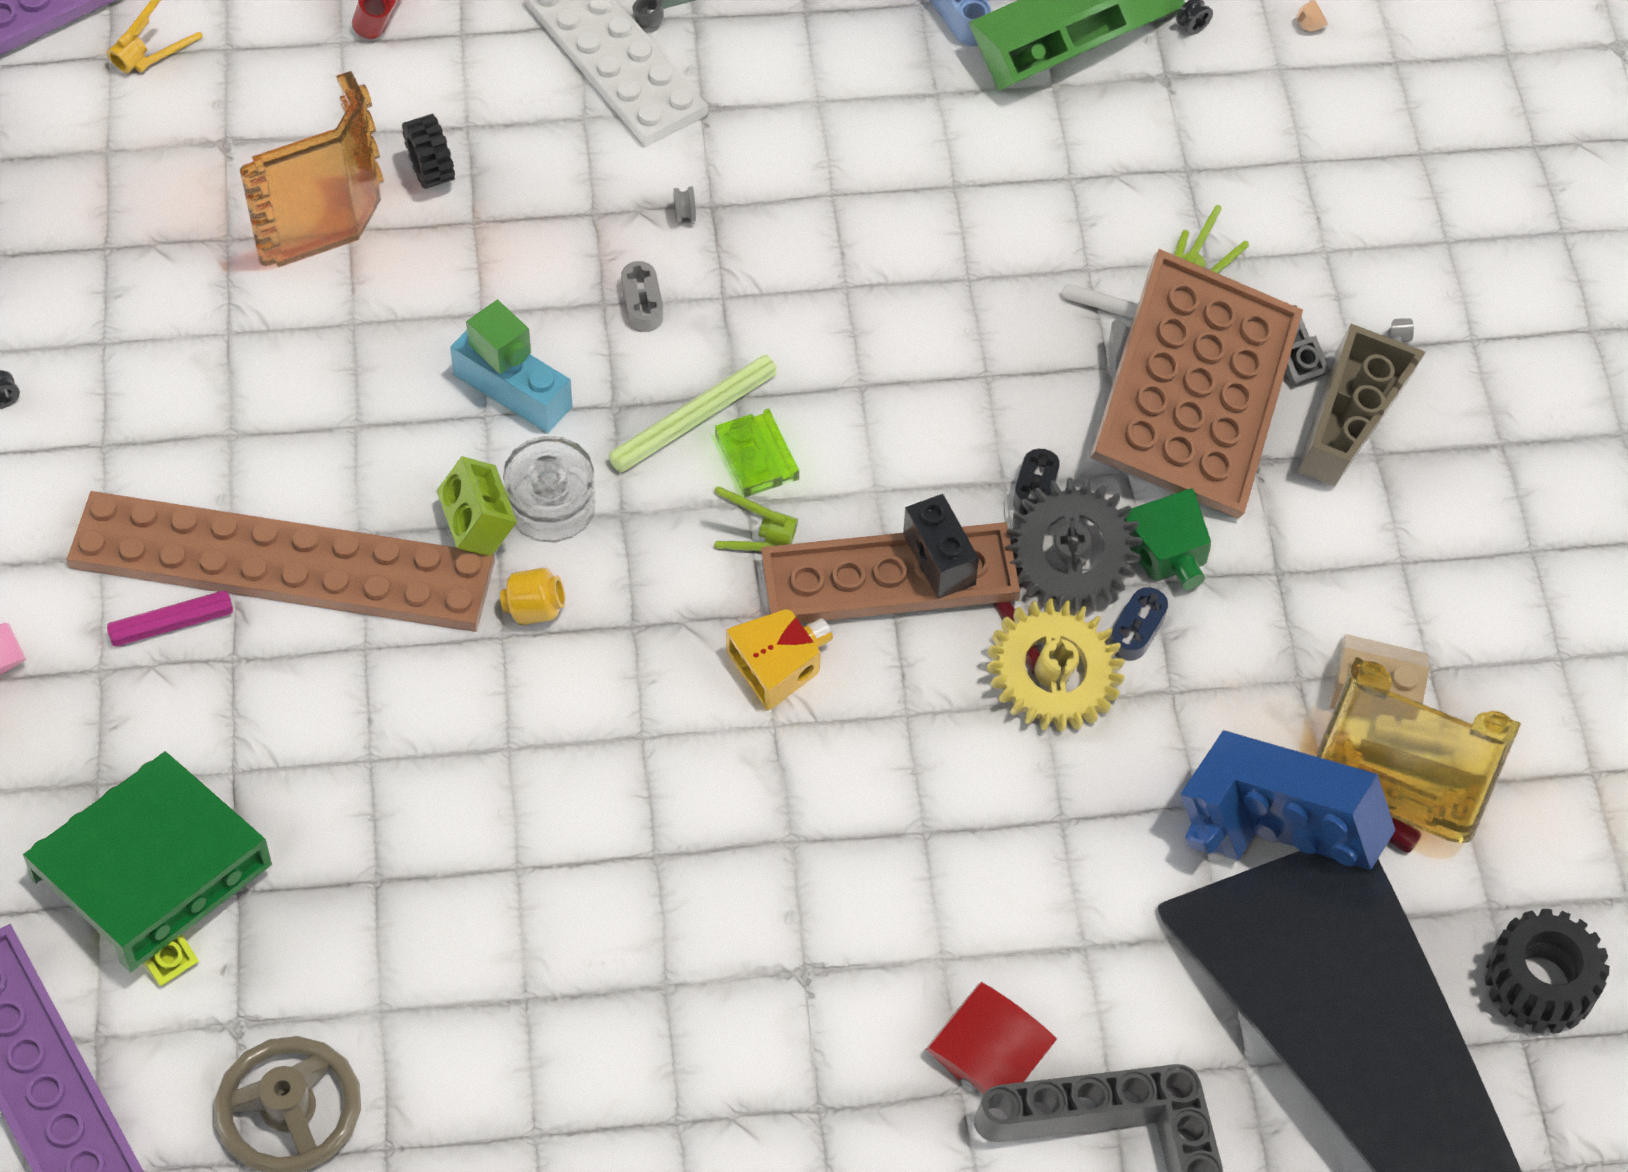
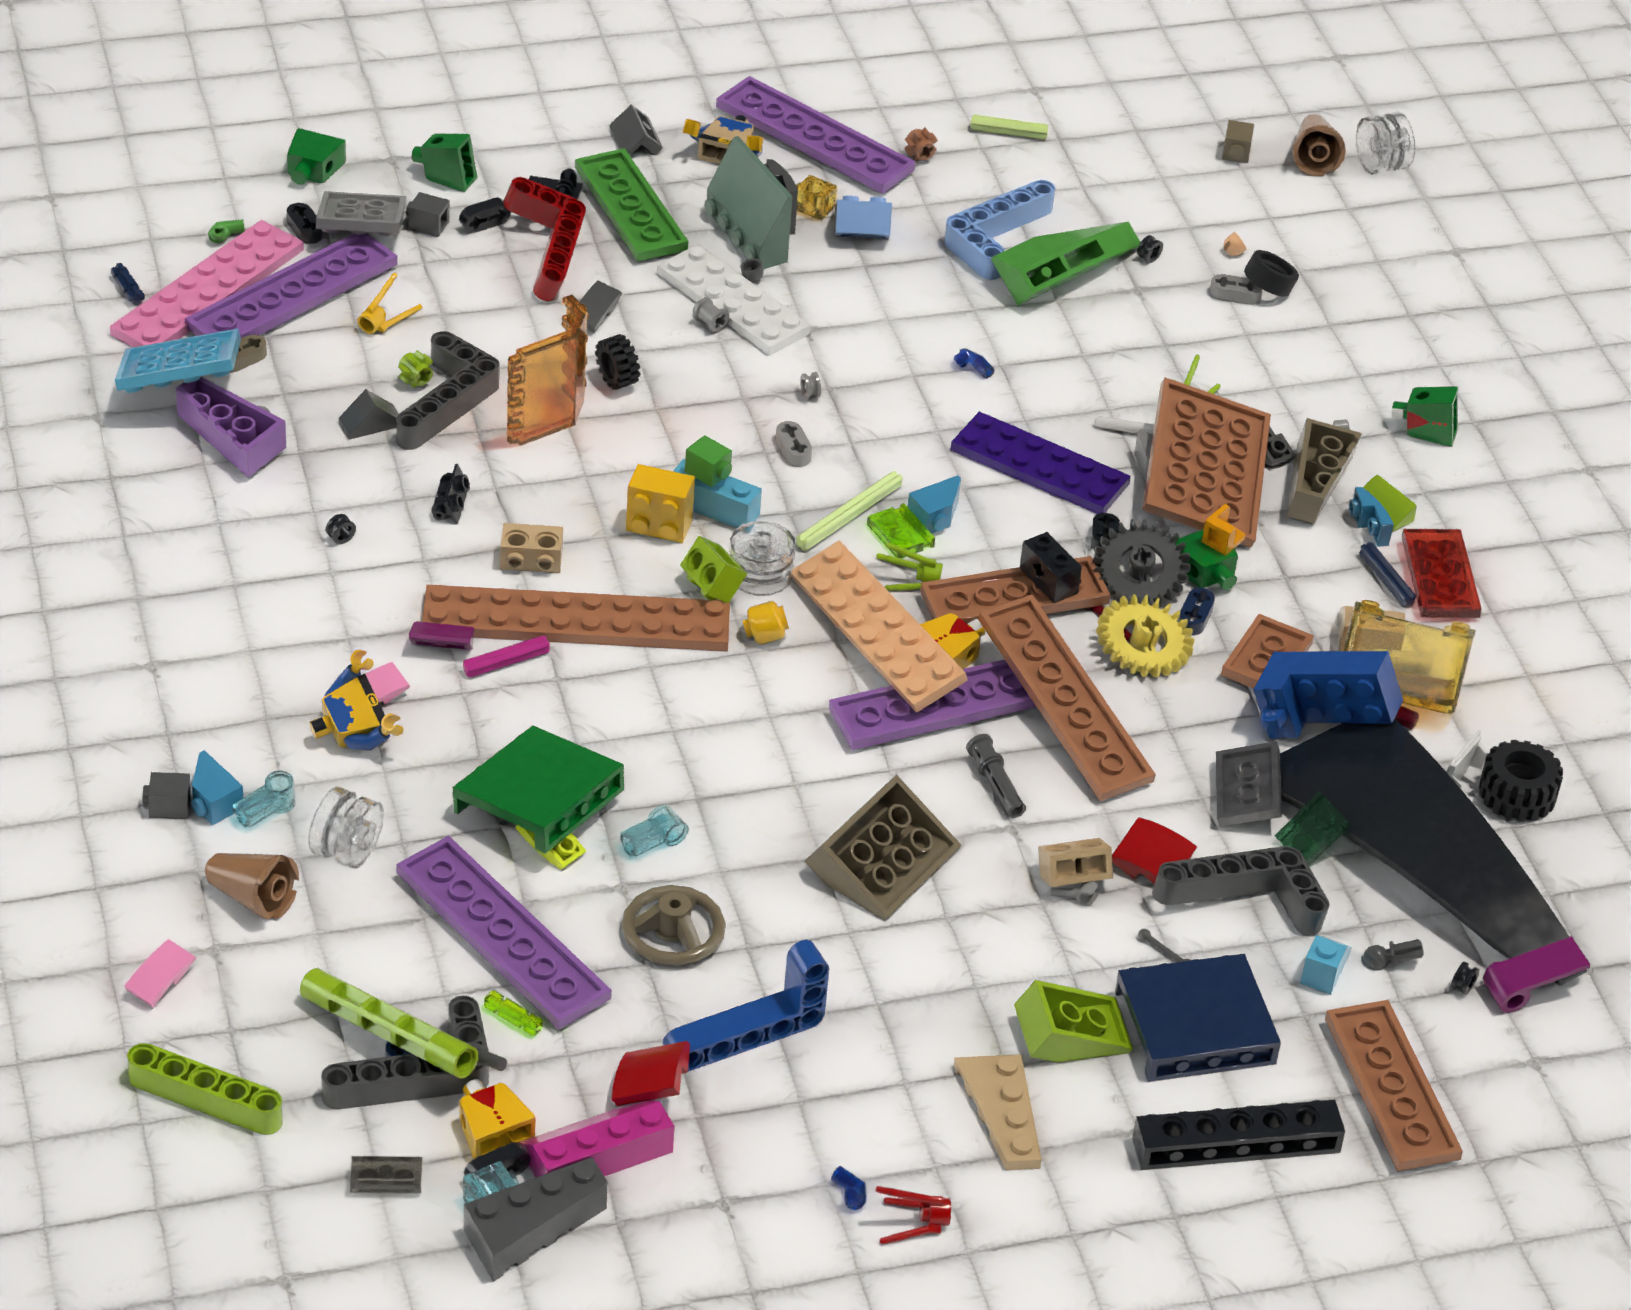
camera: 10 degrees left, 15 degrees down
(87, 207) = (368, 416): none -> dark grey slope
(88, 577) = (442, 635): none -> magenta slope
(161, 139) = (415, 369): none -> lime gear
(165, 343) = (451, 495): none -> black hinge
(197, 189) = (472, 380): none -> dark grey beam
(246, 436) = (531, 547): none -> tan brick
(309, 935) = (660, 827): none -> clear light blue piece
(425, 53) = (599, 302): none -> dark grey slope
(428, 390) = (660, 503): none -> yellow brick
(575, 78) = (710, 314): none -> light grey bush
(609, 1006) = (884, 850): none -> dark tan slope
(683, 623) = (879, 626): none -> light nougat plate
(766, 746) = (885, 716): none -> medium lavender plate
(793, 869) = (991, 766): none -> dark grey pin
(812, 416) = (936, 503): none -> dark azure slope
(873, 1057) = (1075, 862): none -> tan brick
(880, 1107) = (1084, 895): none -> light grey hand
(919, 769) = (1066, 697): none -> nougat plate
(920, 178) = (976, 360): none -> clear blue arm
(973, 355) = (1040, 463): none -> dark purple plate
(1150, 940) = (1248, 784): none -> flat silver plate
(1193, 508) = (1219, 533): none -> light orange panel
(1226, 695) = (1257, 647): none -> nougat plate
(1226, 1034) = (1314, 828): none -> clear green plate
(1301, 88) = (1235, 289): none -> light grey beam
(1352, 70) = (1271, 273): none -> black tyre
(1416, 481) = (1371, 514): none -> dark azure slope
(1422, 584) = (1387, 574): none -> dark blue axle
(1441, 463) = (1397, 505): none -> lime slope
(1483, 925) = (1470, 755): none -> white piece
(1498, 590) = (1441, 573): none -> clear red plate
(1531, 322) = (1430, 414): none -> green torso

